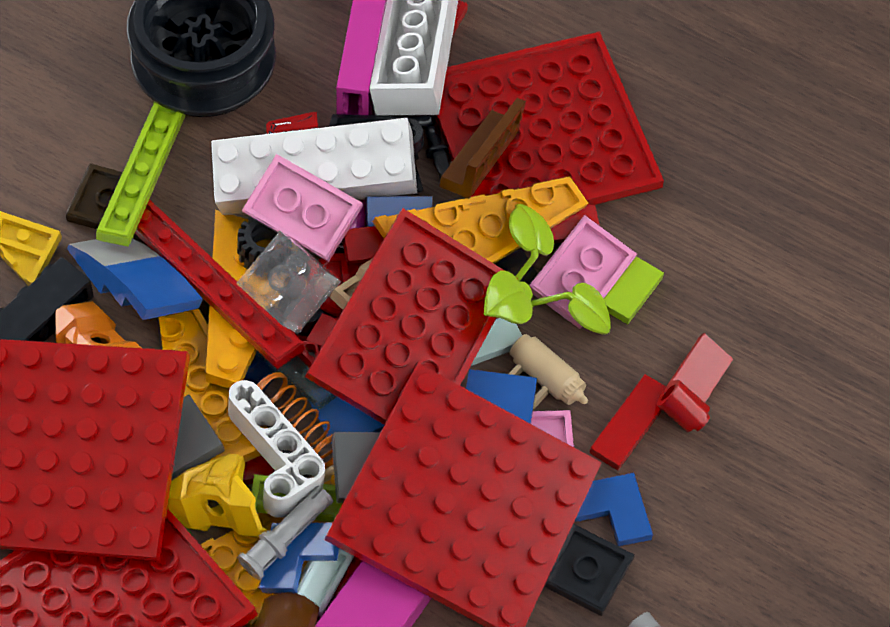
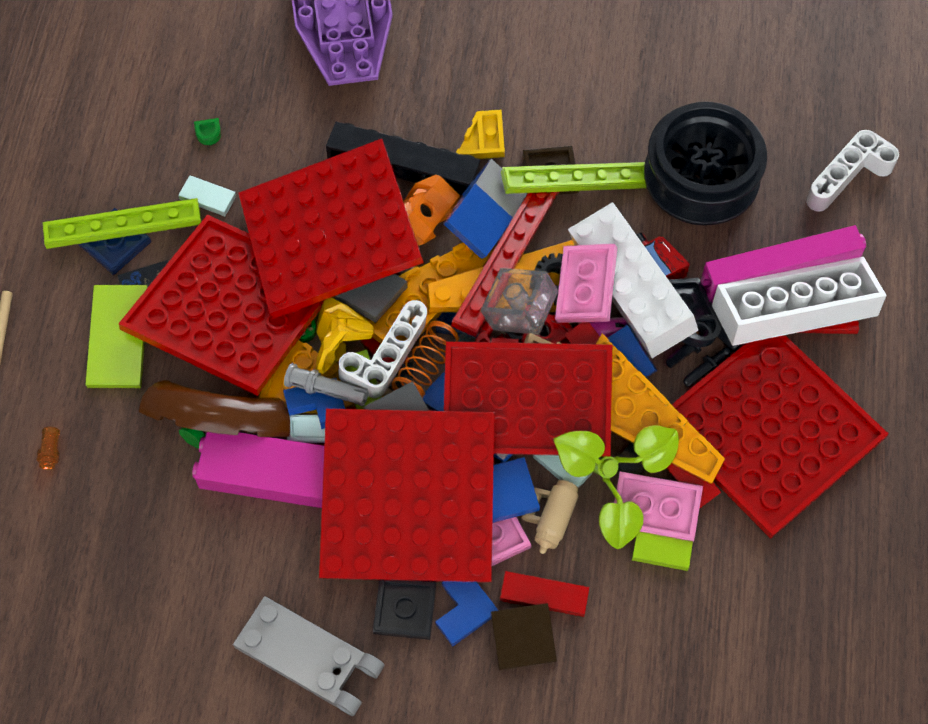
camera: 70 degrees right, 5 degrees up
(482, 150) = (712, 387): reddish brown fence -> none
(674, 460) = (523, 636): none -> dark brown tile
(693, 383) = (598, 626): door -> none

